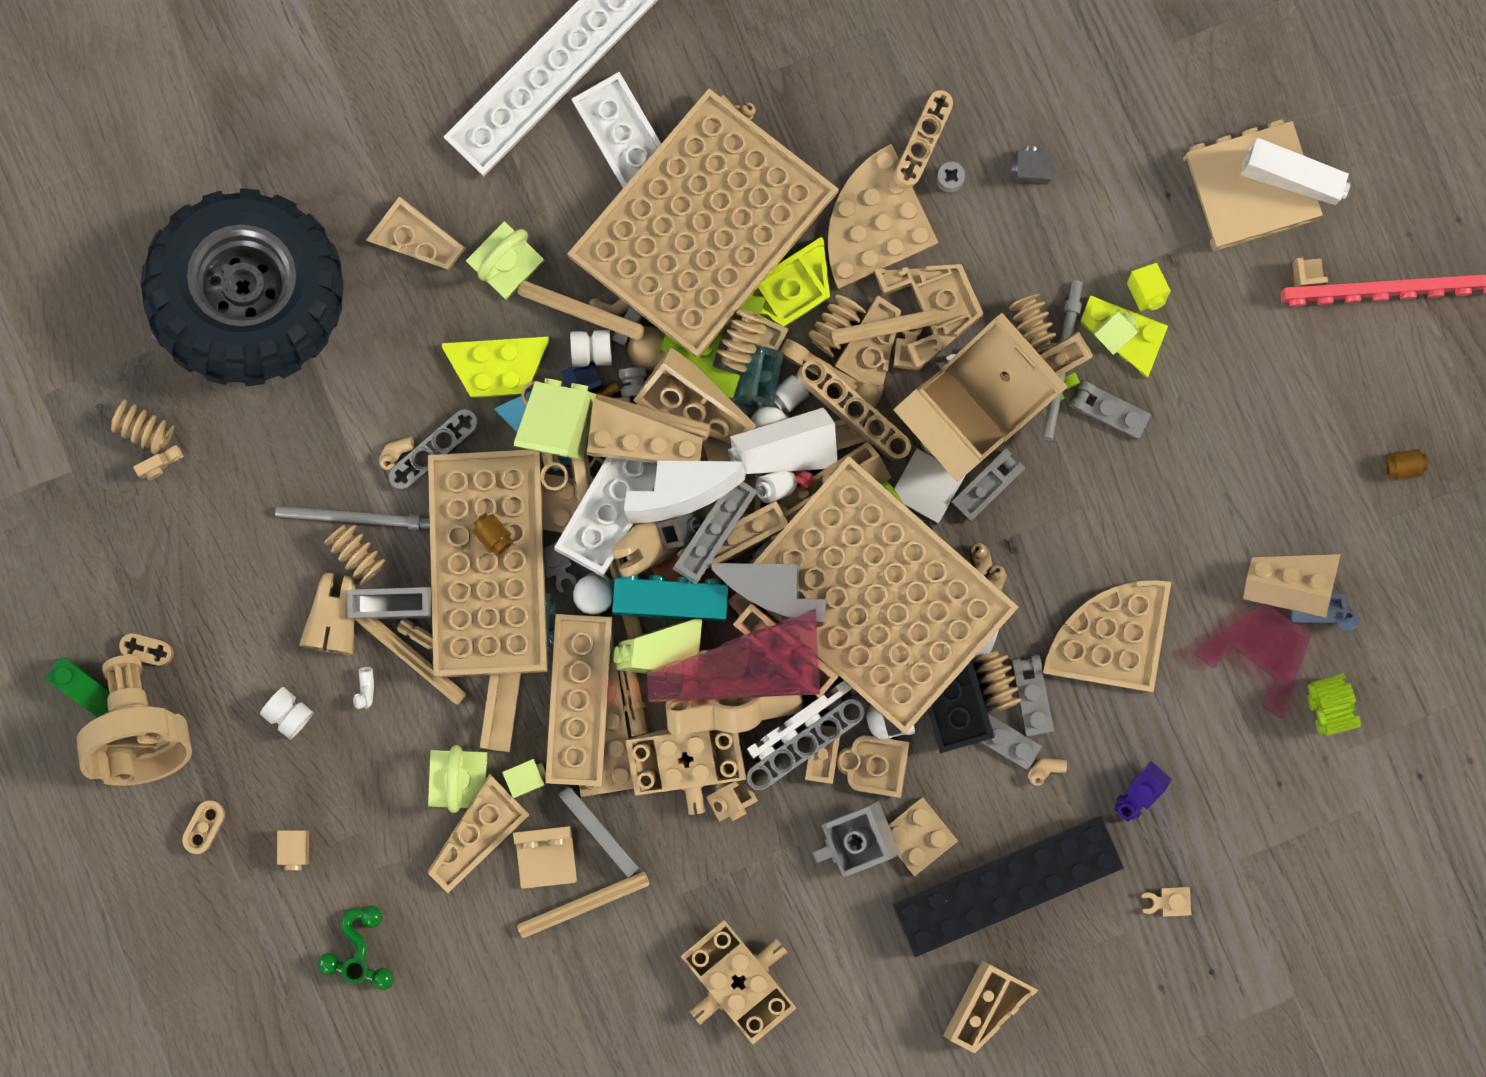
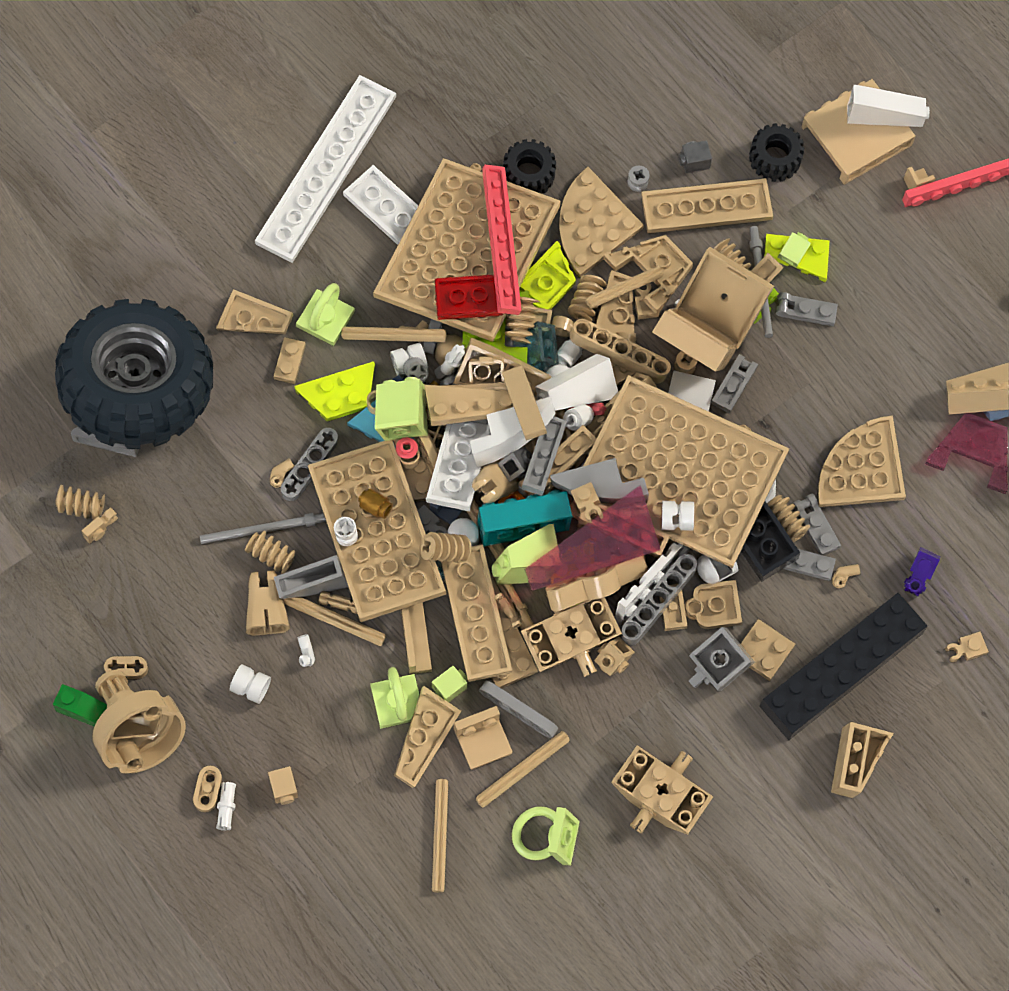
camera: 20 degrees left, 15 degrees down
(220, 854) = (226, 806): none -> white pin
(329, 964) = (336, 866): green piece -> none
(444, 556) = (345, 526): none -> white wheel
(445, 306) = (289, 360): none -> tan plate
(462, 958) = (440, 830): none -> tan axle
(558, 476) = (406, 454): none -> coral plate
(560, 615) = (445, 547): none -> tan piece
(596, 375) = (421, 371): none -> light grey wheel
(602, 1003) = (560, 837): none -> yellowish green tile
(622, 710) = (509, 611): none -> tan piece
(639, 371) = (453, 359): none -> white axle
(679, 389) = (483, 361): none -> tan piece
(682, 293) = (466, 297): none -> red tile
(706, 461) = (524, 402): none -> tan tile
(745, 228) = (501, 240): none -> coral plate
(745, 609) = (587, 501): none -> tan plate
(815, 106) = (530, 153): none -> black tyre
(853, 656) = (686, 515): none -> white wheel
(923, 139) = (612, 157): tan beam -> none
(1026, 237) = (707, 205): none -> tan plate
(1148, 287) = (807, 216): neon yellow brick -> none
(1150, 170) = (781, 138): none -> black tyre

